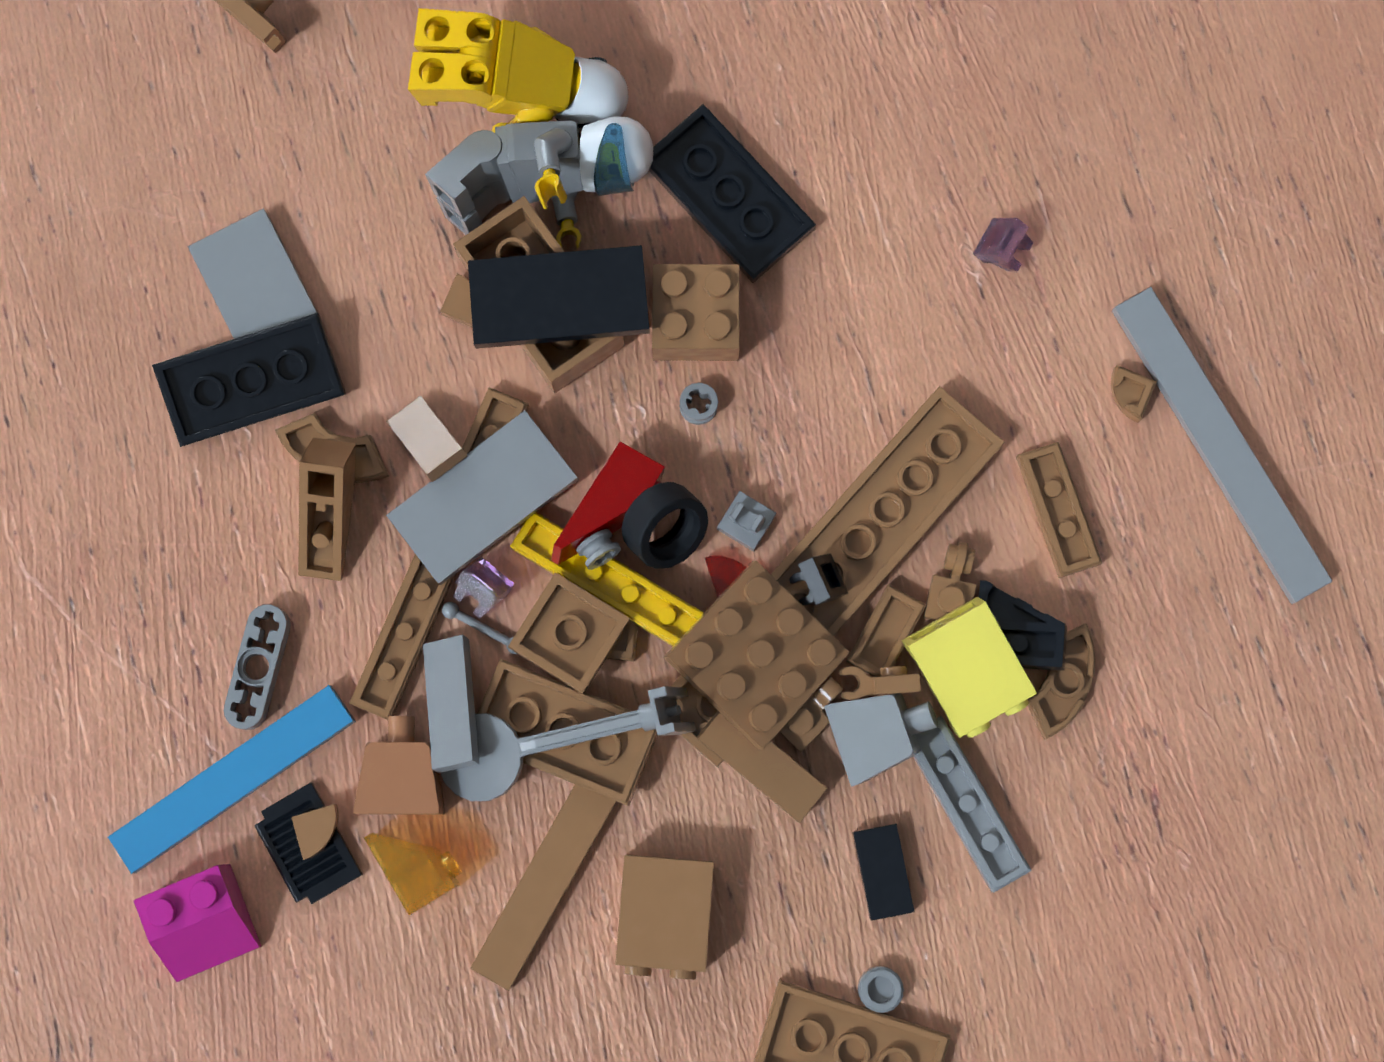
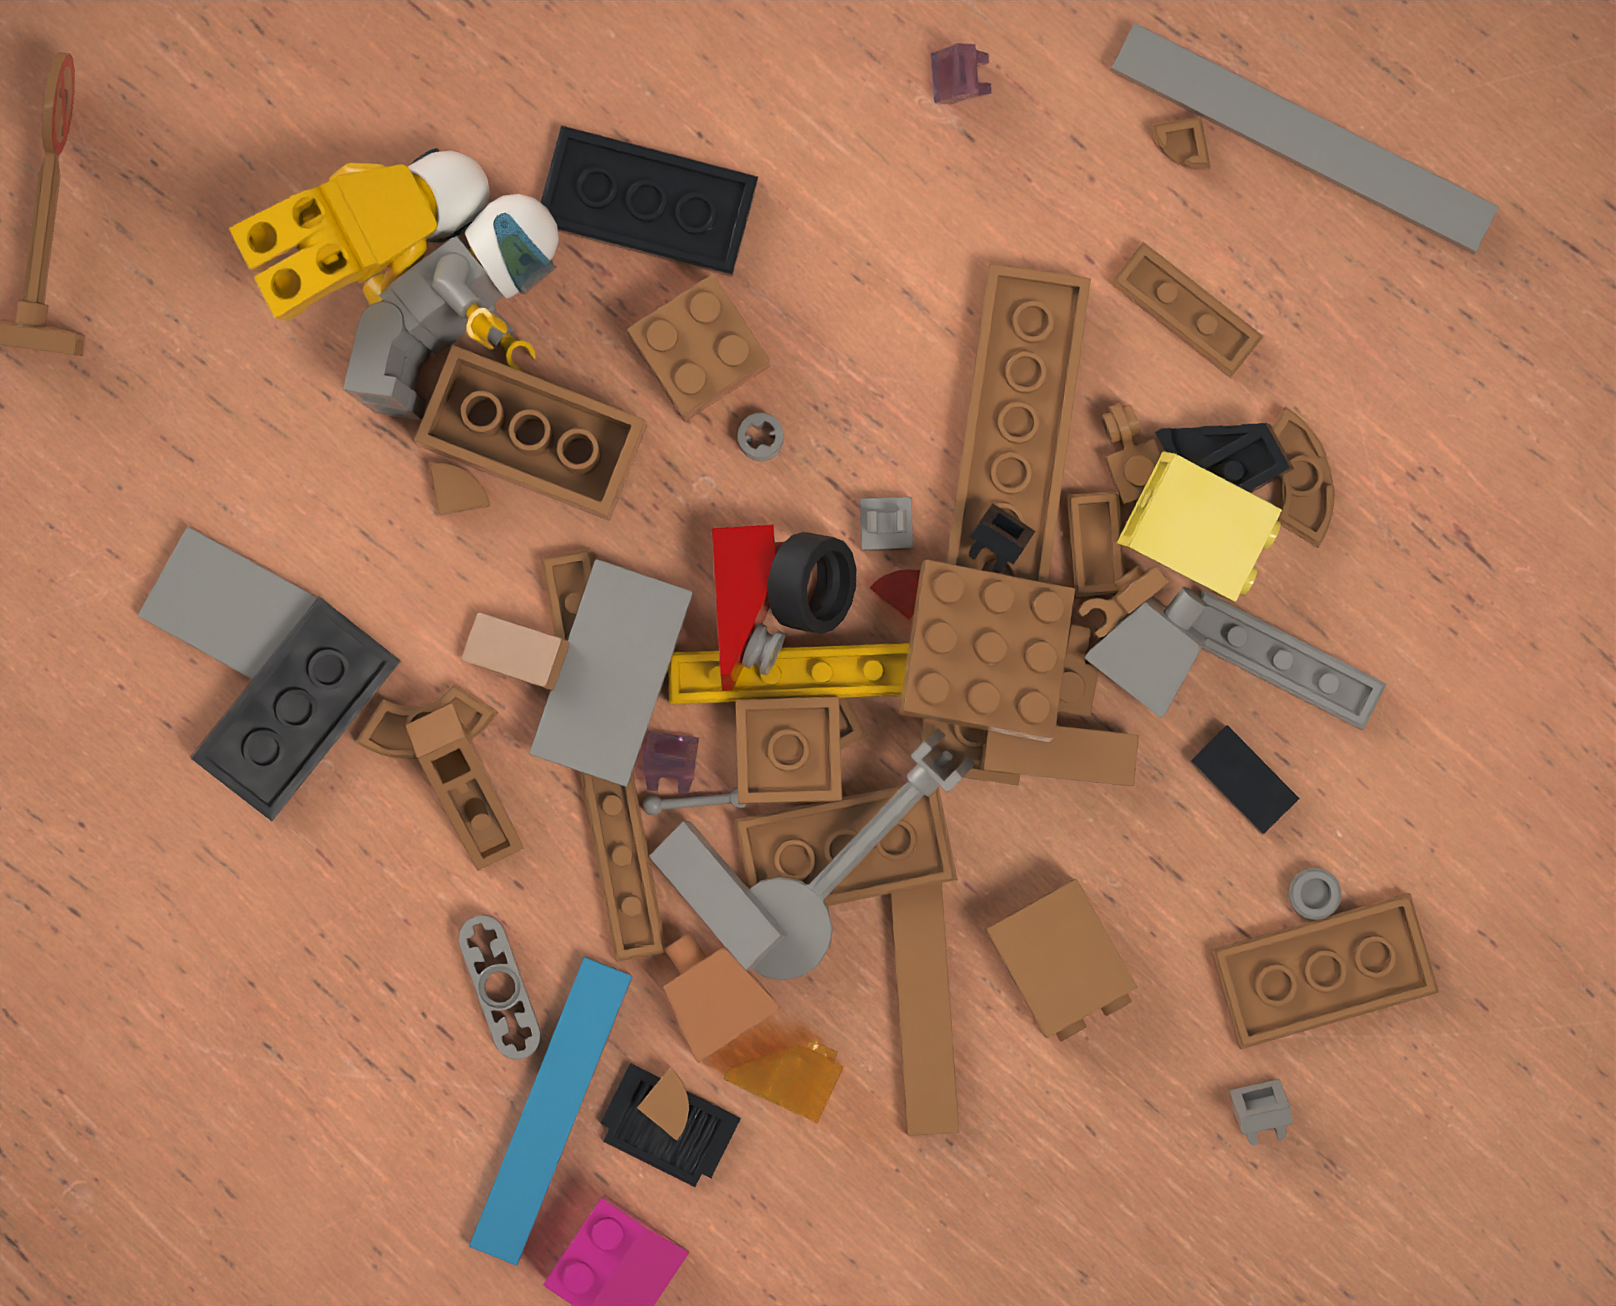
camera: 35 degrees left, 5 degrees up
(558, 297) = (558, 425): black tile -> none

